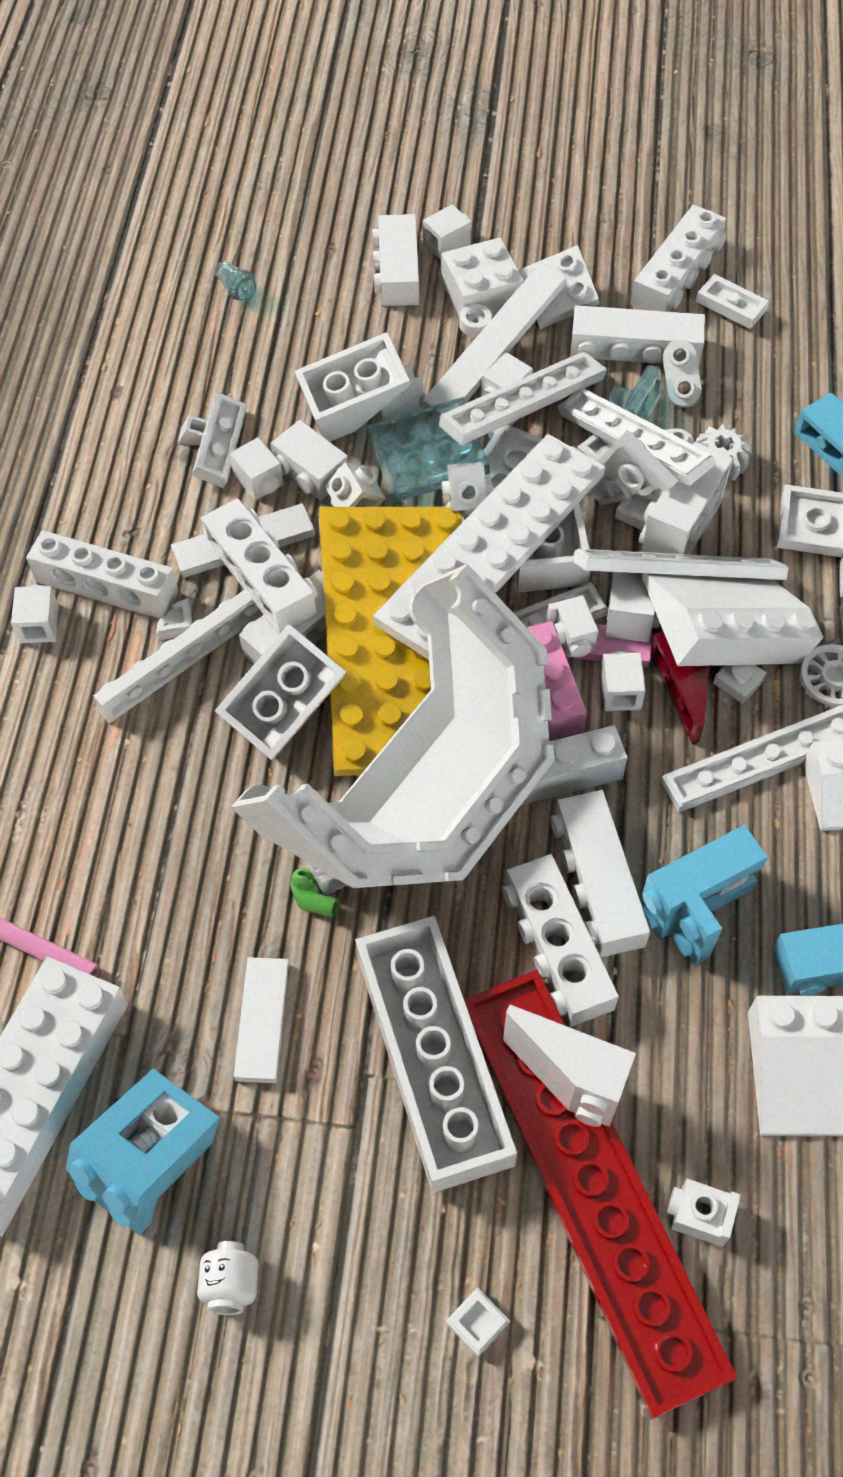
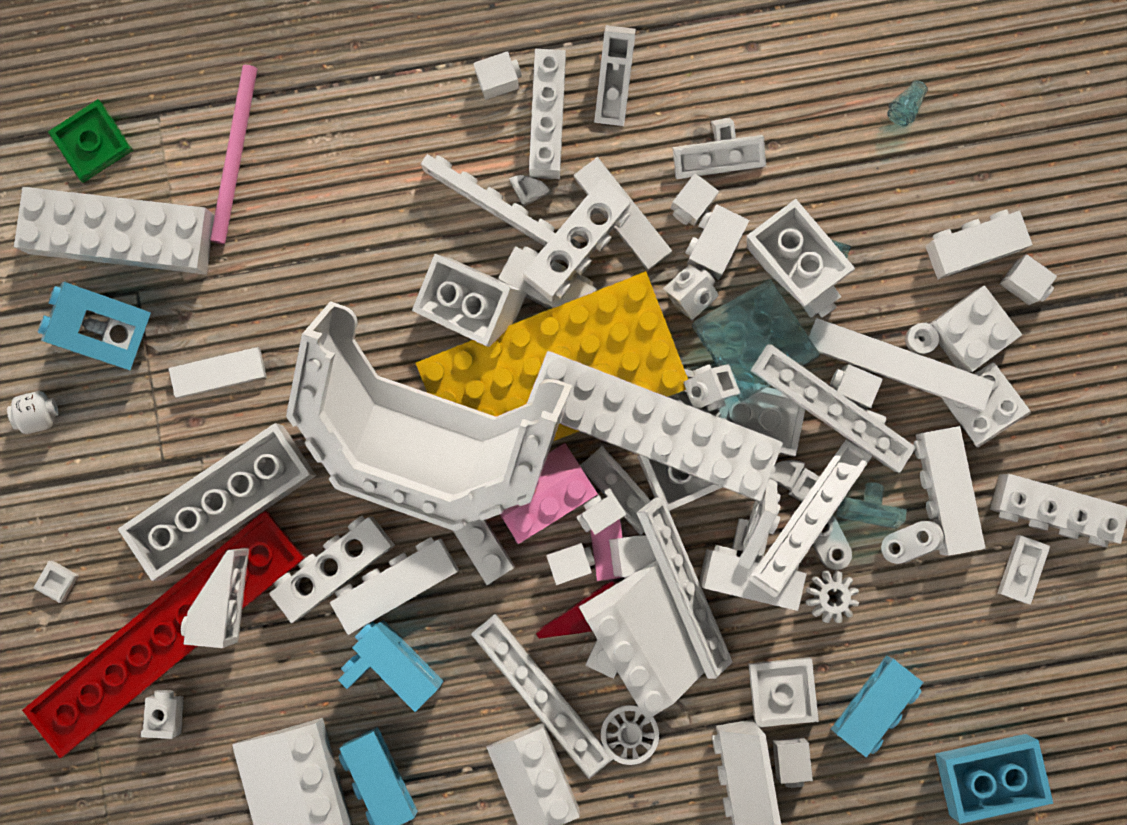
camera: 75 degrees right, 25 degrees up
(87, 503) = (614, 75): none -> white slope

